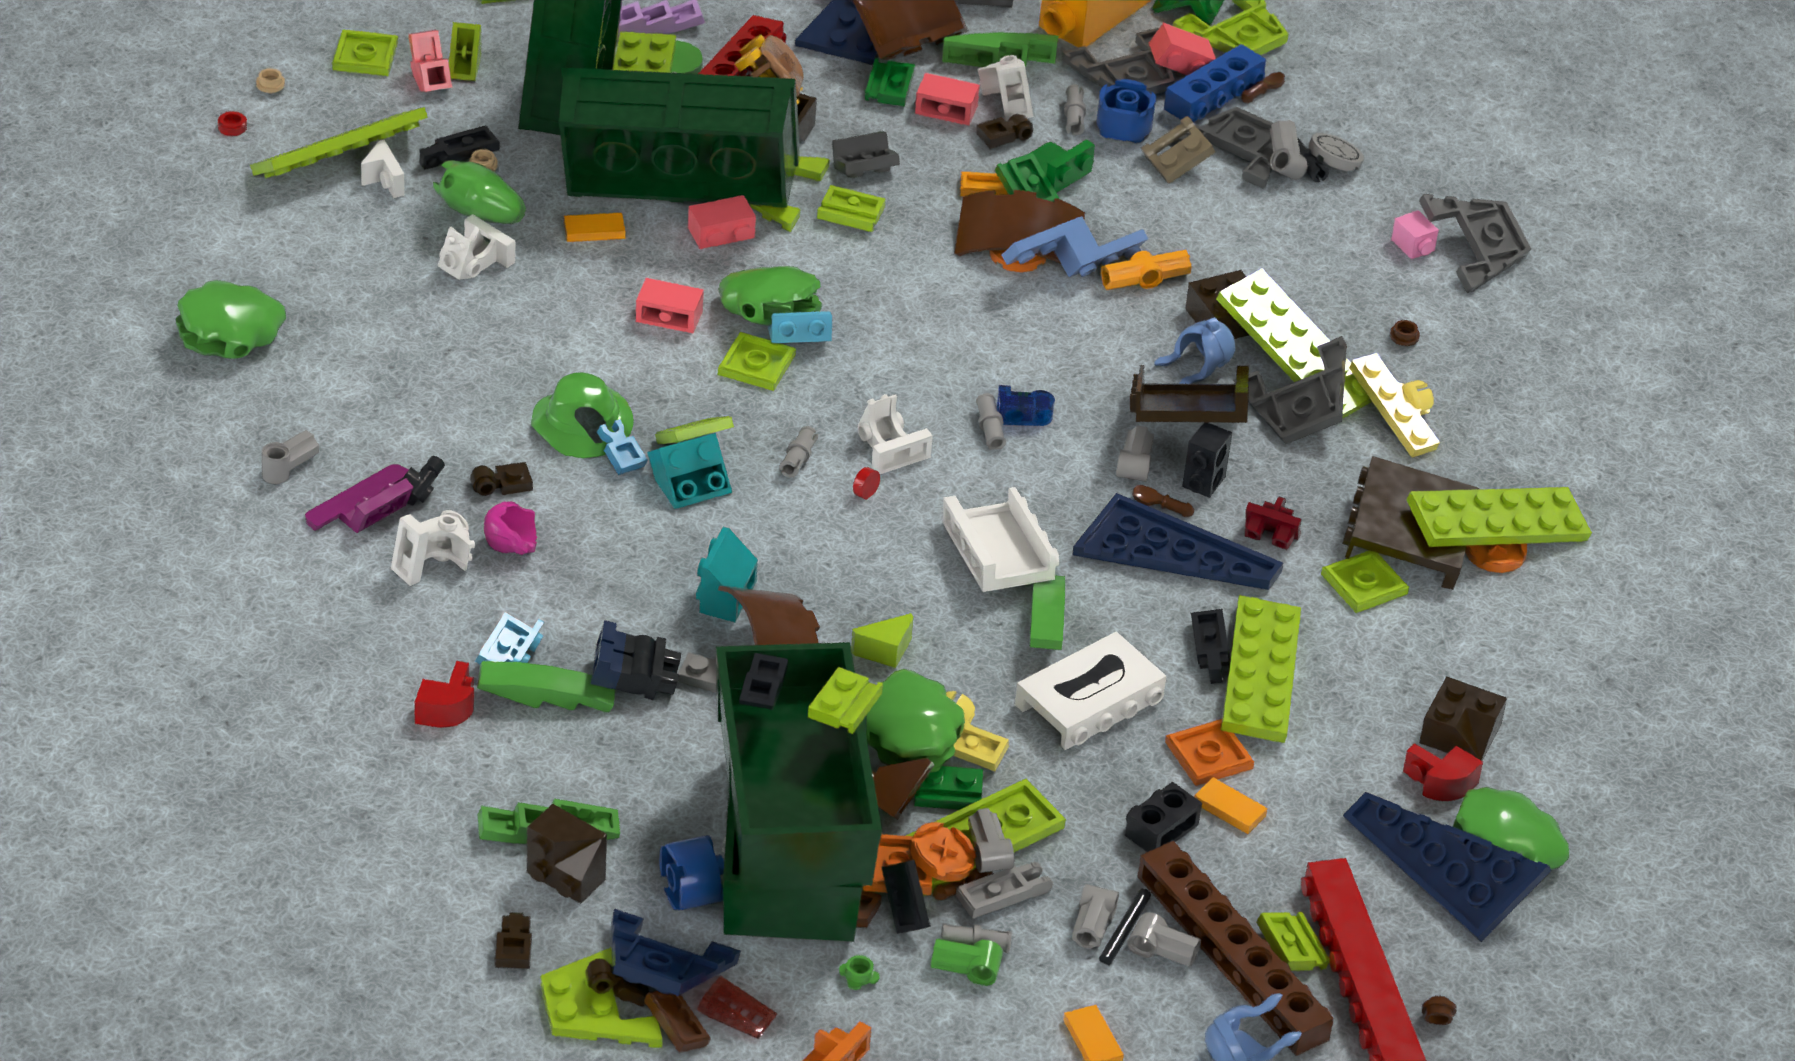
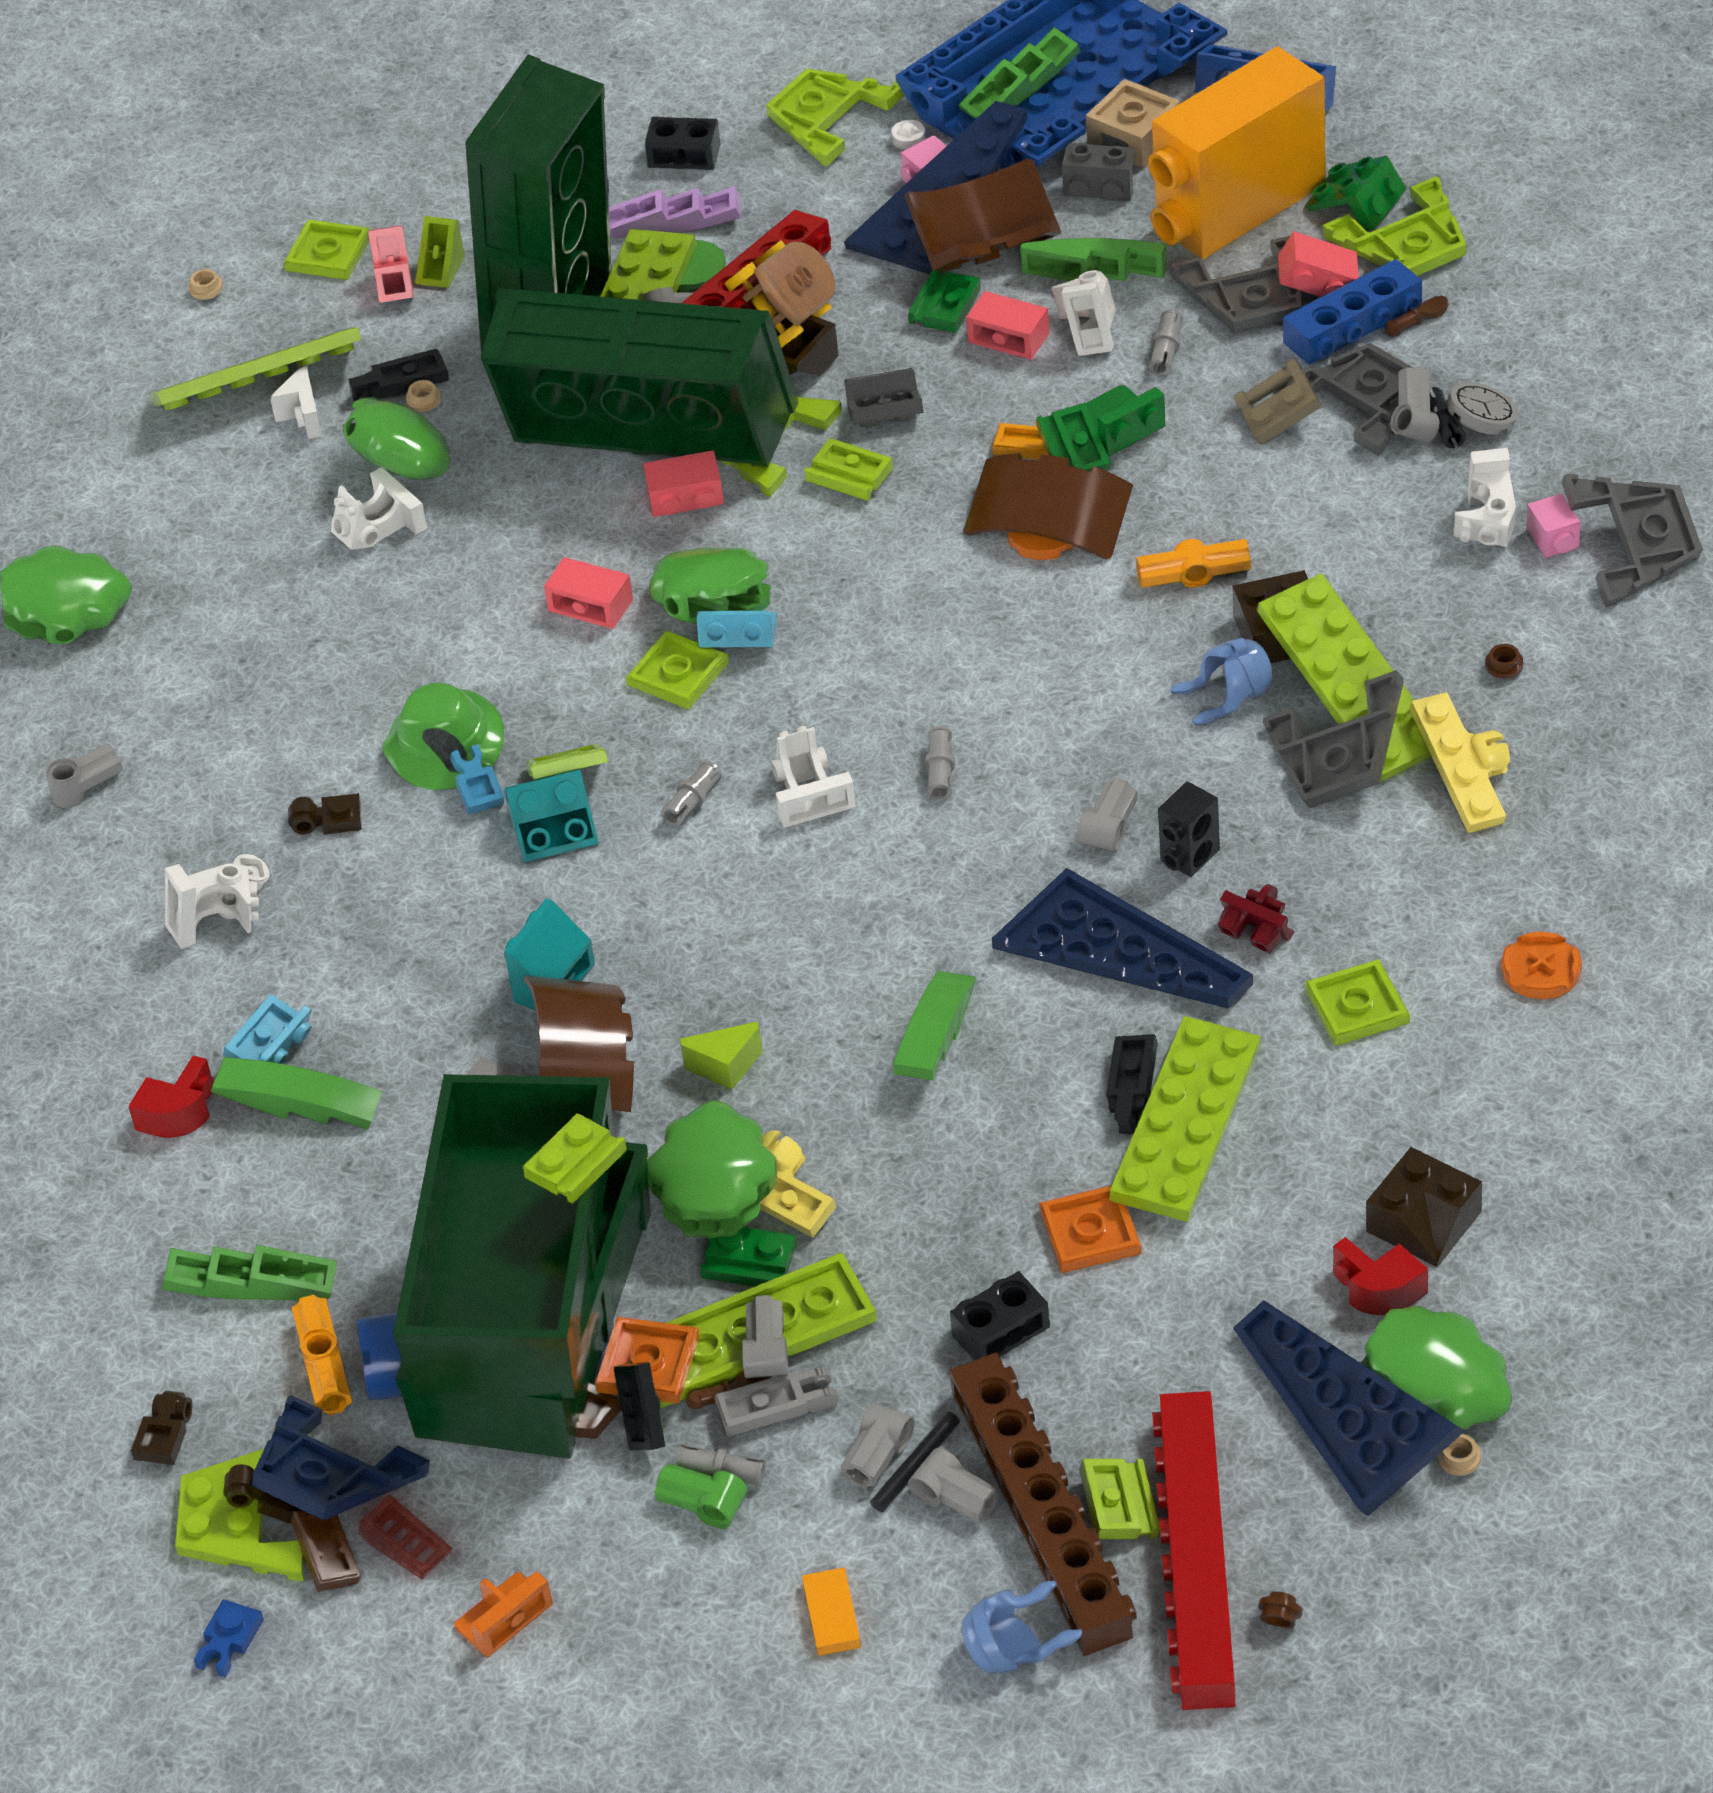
camera: 20 degrees right, 5 degrees up
(232, 123) = (147, 338): red tile -> none
(365, 501) = (159, 836): magenta plate -> none
(422, 480) = (222, 819): black plate -> none
(510, 528) = (312, 882): dark pink hair -> none
(566, 853) = (247, 1320): dark brown slope -> none
(594, 227) = (532, 485): light orange tile -> none
(630, 880) = (321, 1354): none -> light orange piece
(634, 663) = (402, 1067): black hips -> none
(764, 681) = (487, 1128): black slope -> none
(859, 972) = (565, 1490): bright green plate -> none
(866, 482) = (761, 839): red tile -> none
(899, 783) = (671, 1256): reddish brown slope -> none
(942, 852) = (701, 1349): orange tile -> none
(999, 132) = (1063, 371): dark brown plate -> none
(1001, 542) = (902, 930): white panel -> none
(1025, 408) = (986, 746): clear blue leg -> none
(1075, 247) = (1104, 532): medium blue bracket -> none
(1092, 689) = (959, 1136): white panel -> none
(1125, 111) = (1225, 347): blue brick -> none
(1149, 496) = (1112, 872): reddish brown piece -> none
(1190, 401) = (1185, 749): dark brown panel -> none
(1231, 805) = (1095, 1304): light orange tile -> none
(1370, 213) = (1496, 519): none -> white tile
(1387, 524) = (1434, 921): dark brown panel -> none
(1498, 516) = (1546, 925): lime plate -> none
(1541, 896) = (1464, 1446): none -> tan plate

